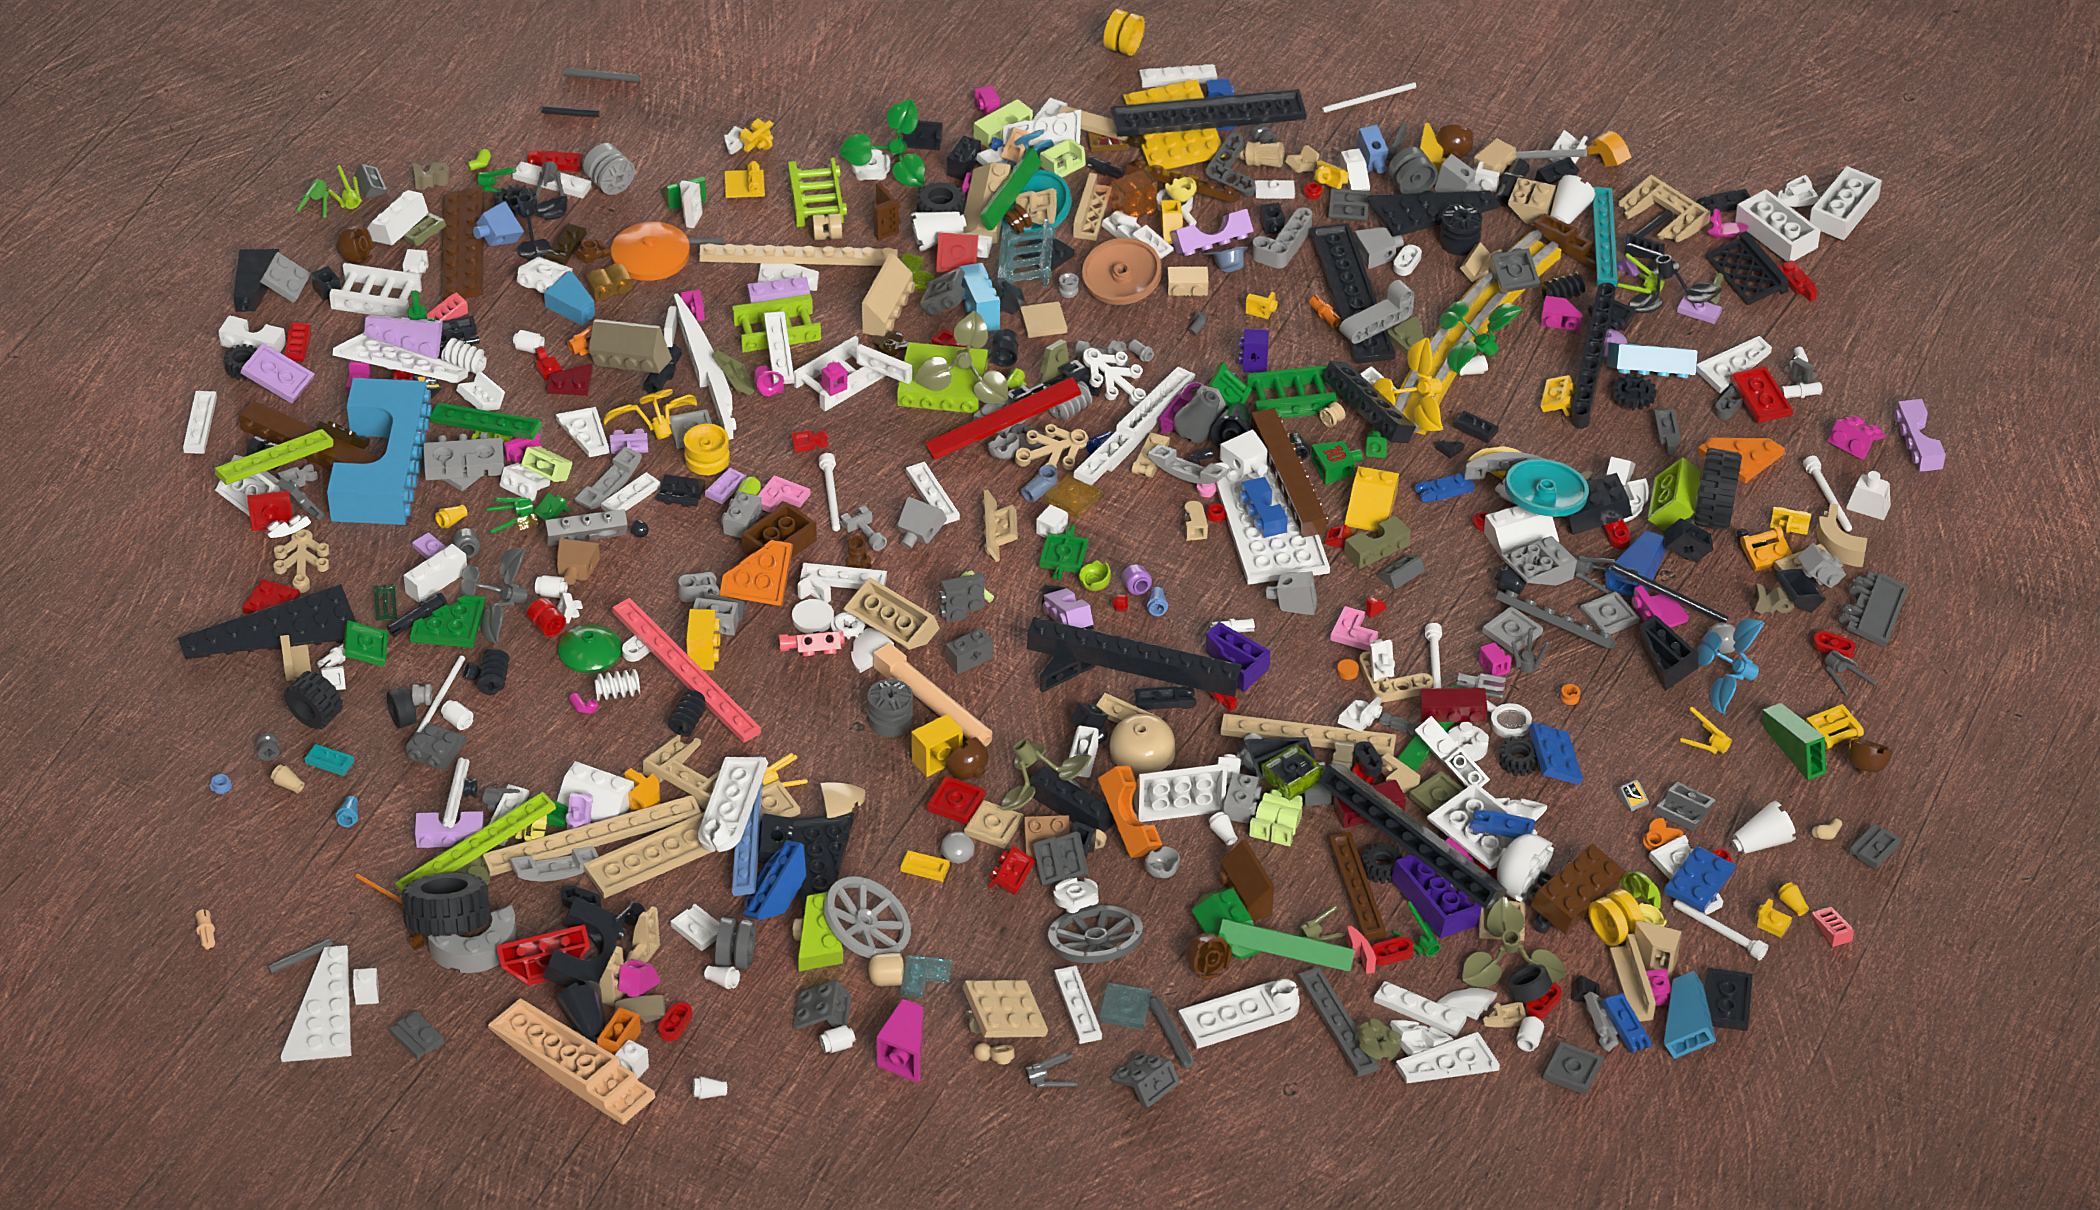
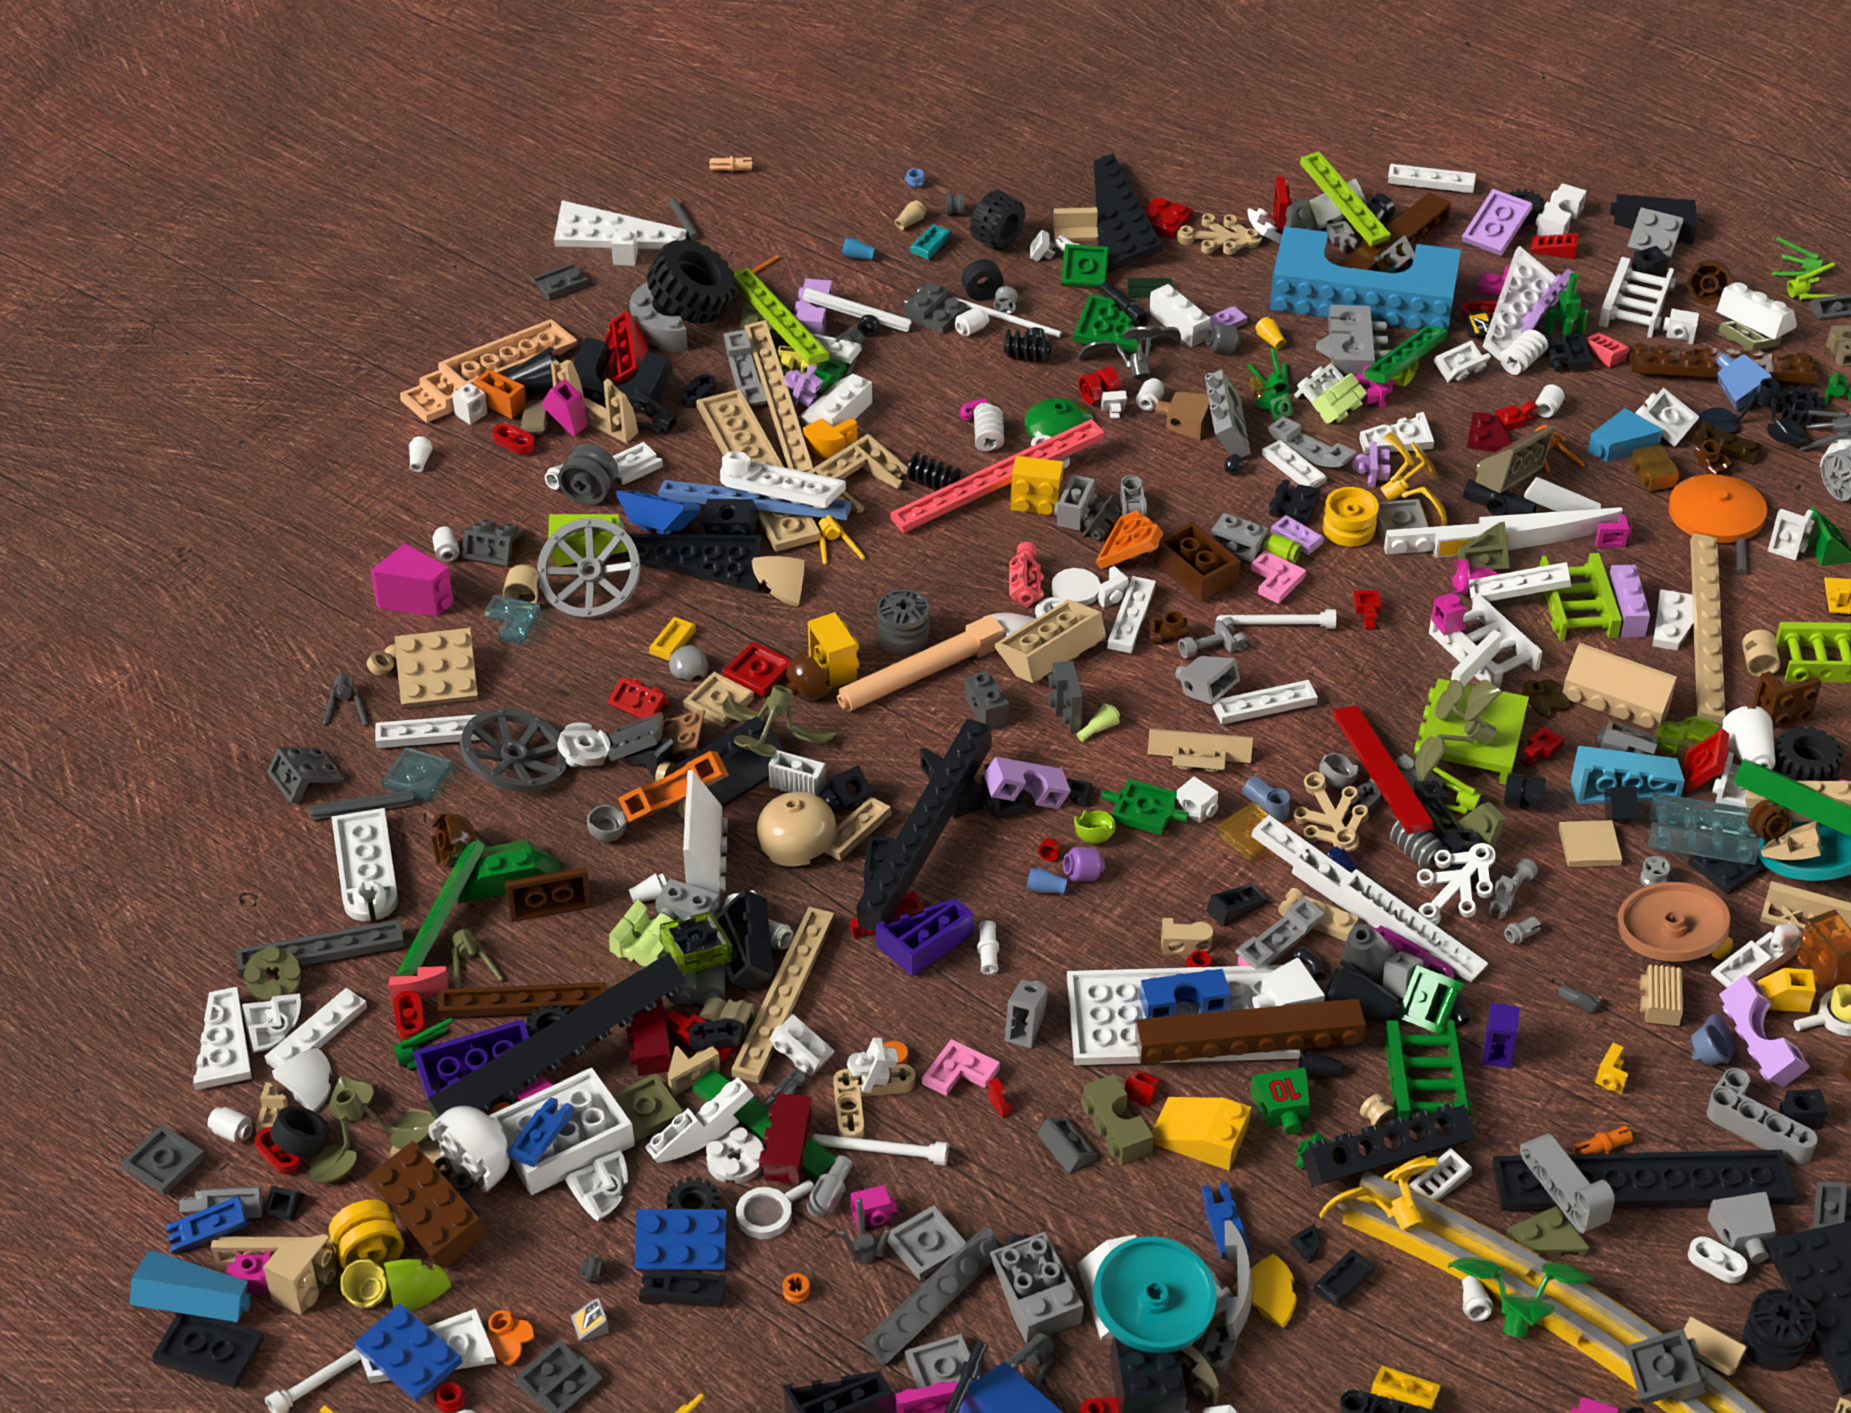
camera: 100 degrees right, 0 degrees up
(1152, 499) = (1239, 903): none -> black slope
(1591, 750) = (682, 1288): none -> black plate
(1591, 801) = (591, 1267): none -> dark grey plate

